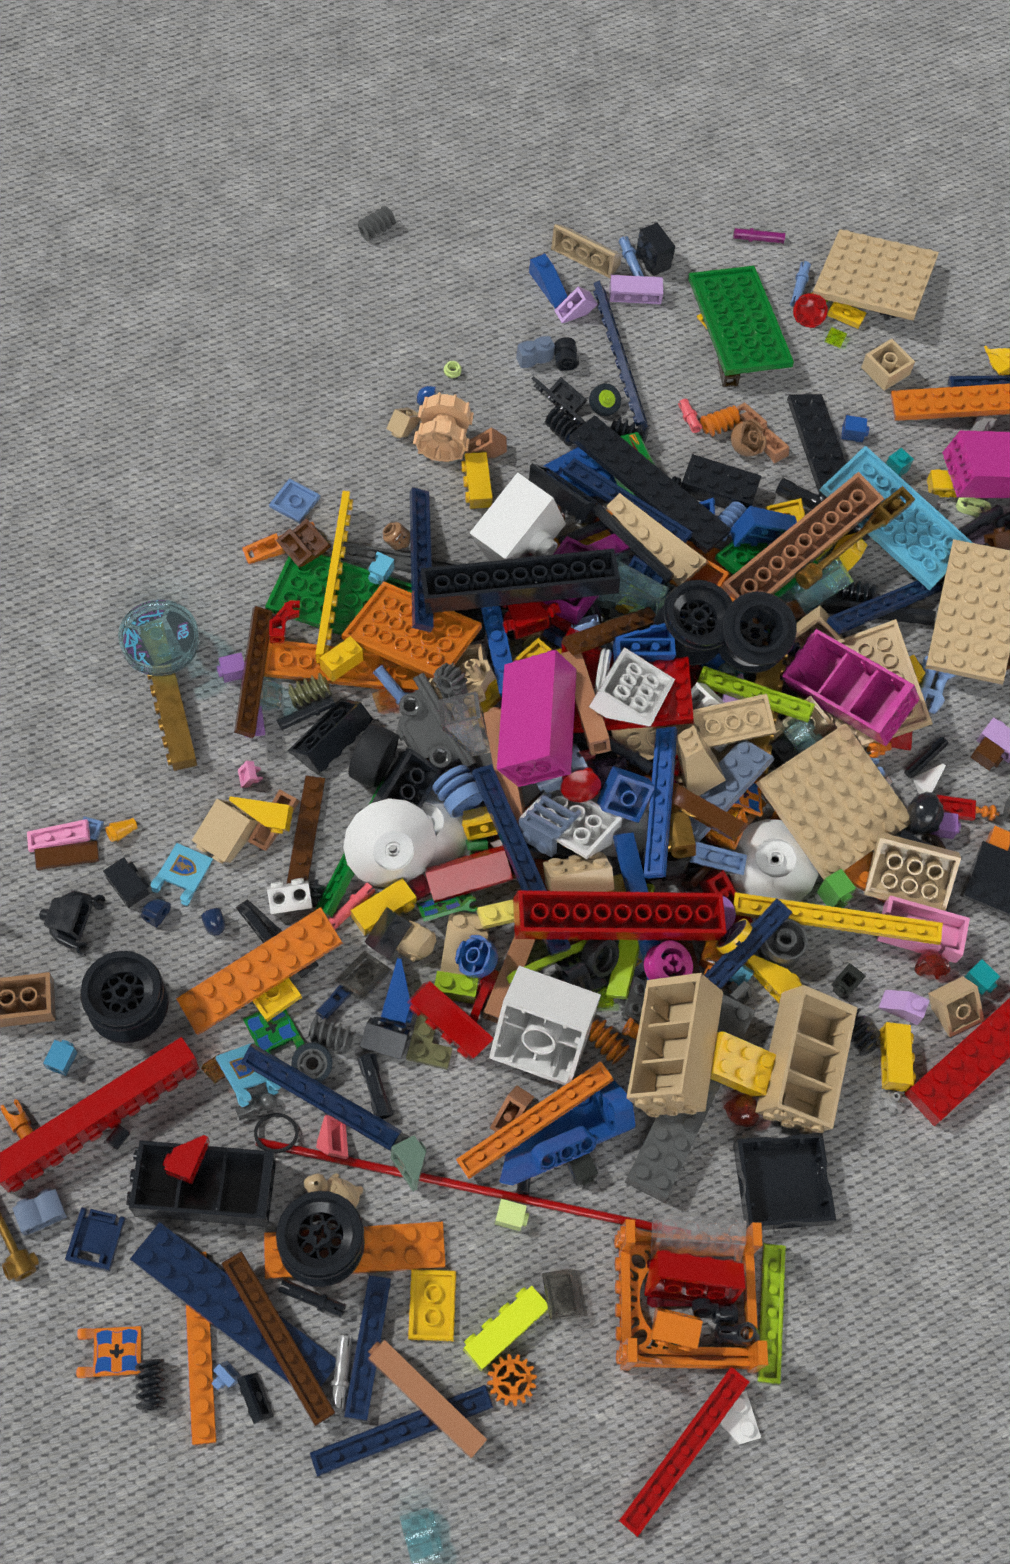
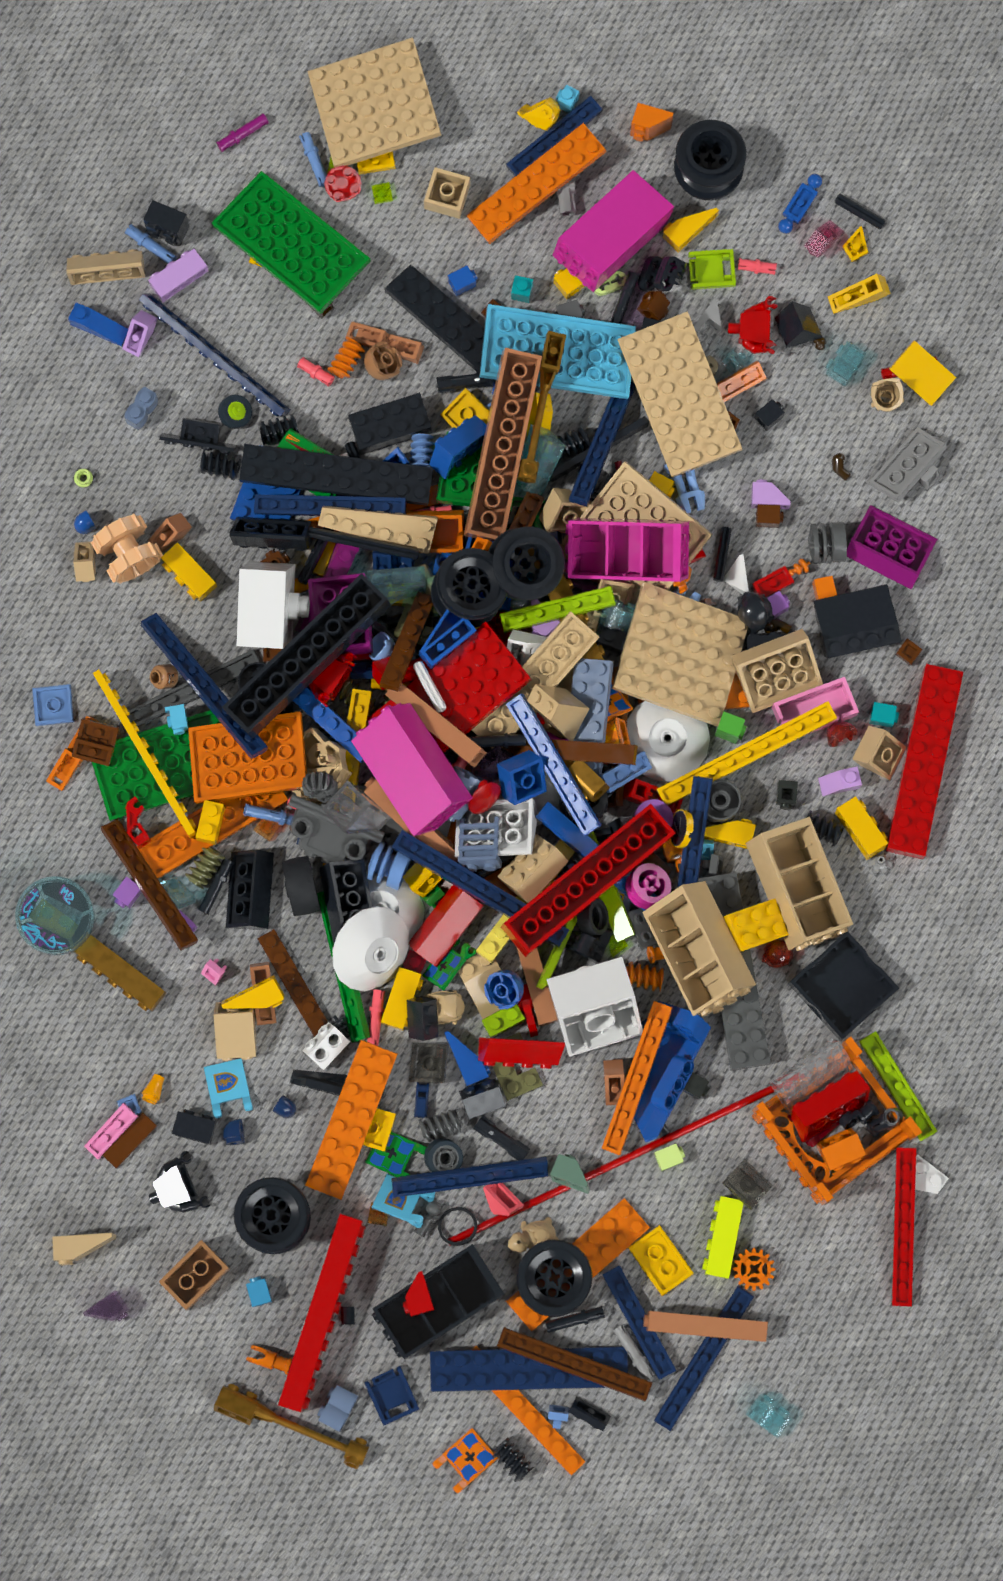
camera: 30 degrees left, 15 degrees up
(566, 354) = (168, 390): black wheel -> none
(632, 690) = (468, 691): white slope -> none

